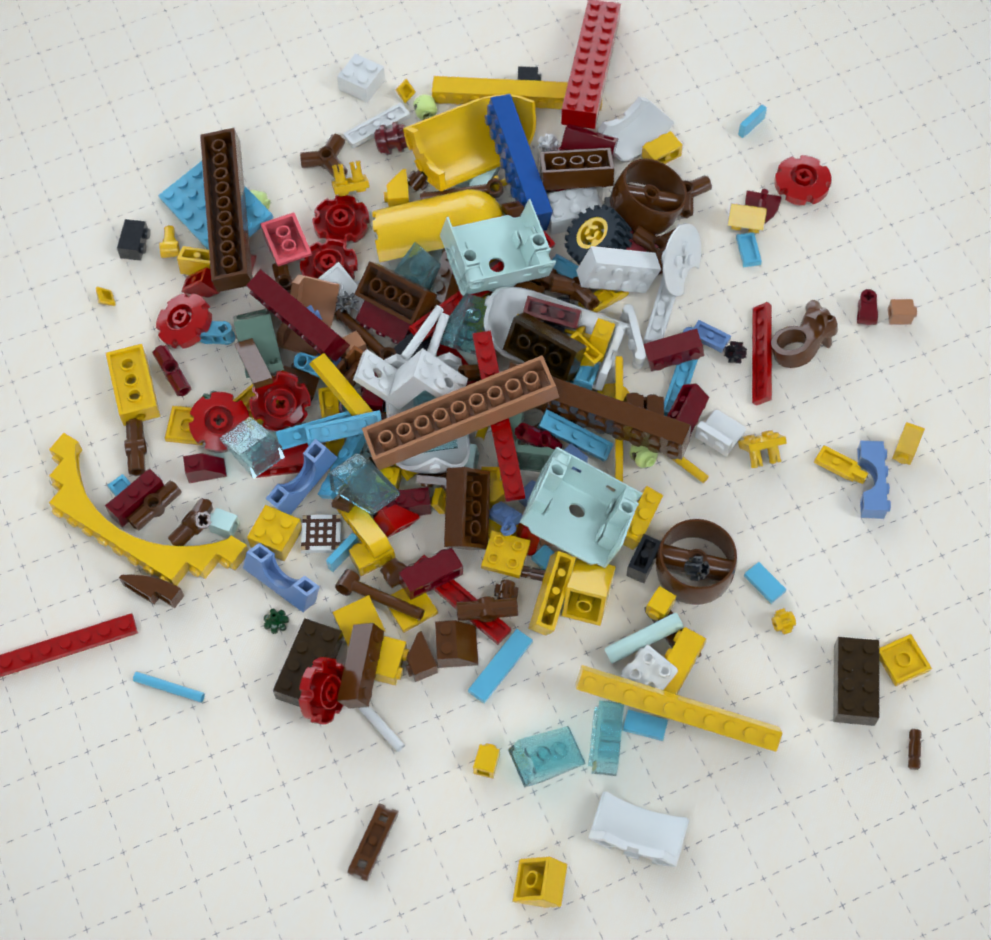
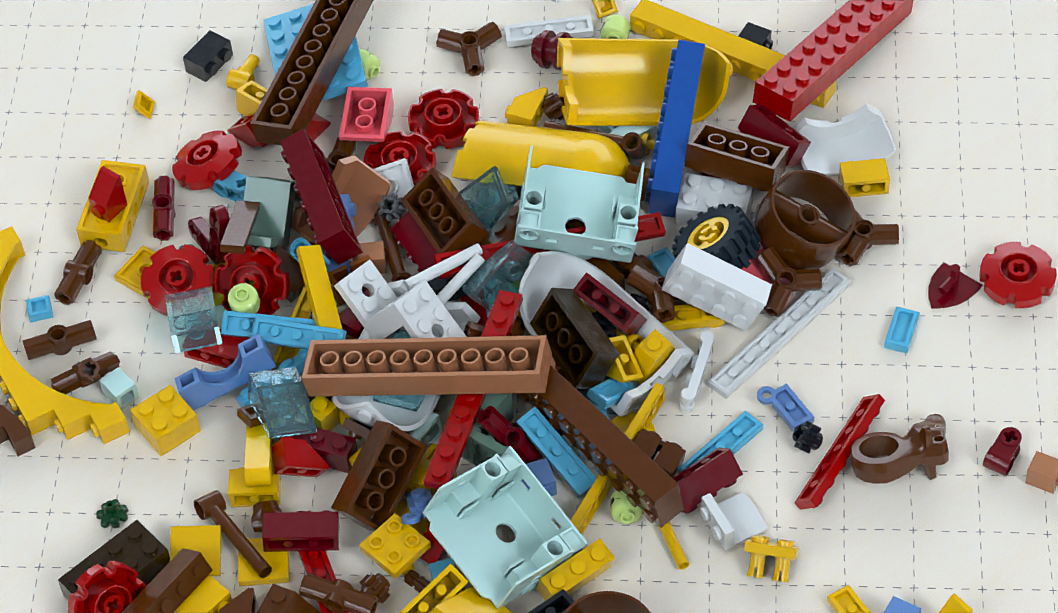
camera: 30 degrees right, 10 degrees down
(132, 379) = (107, 195): none -> red slope
(133, 496) = (41, 319): dark red brick -> none
(203, 467) = (134, 321): dark red slope -> none
(231, 381) = (211, 235): none -> dark red beam
(263, 566) = (130, 448): medium blue arch -> none
(285, 417) = (244, 298): none -> yellowish green head
(320, 533) = (215, 443): tile -> none
(341, 552) = (219, 472): medium azure tile -> none
(343, 185) = (467, 81): yellow plate -> none
(548, 143) = (730, 118): white gear -> none
(674, 350) = (733, 404): dark red brick -> none
(680, 255) = (798, 297): white piece -> none
(746, 217) = (918, 290): yellow brick -> none
(752, 121) = (998, 184): medium azure tile -> none

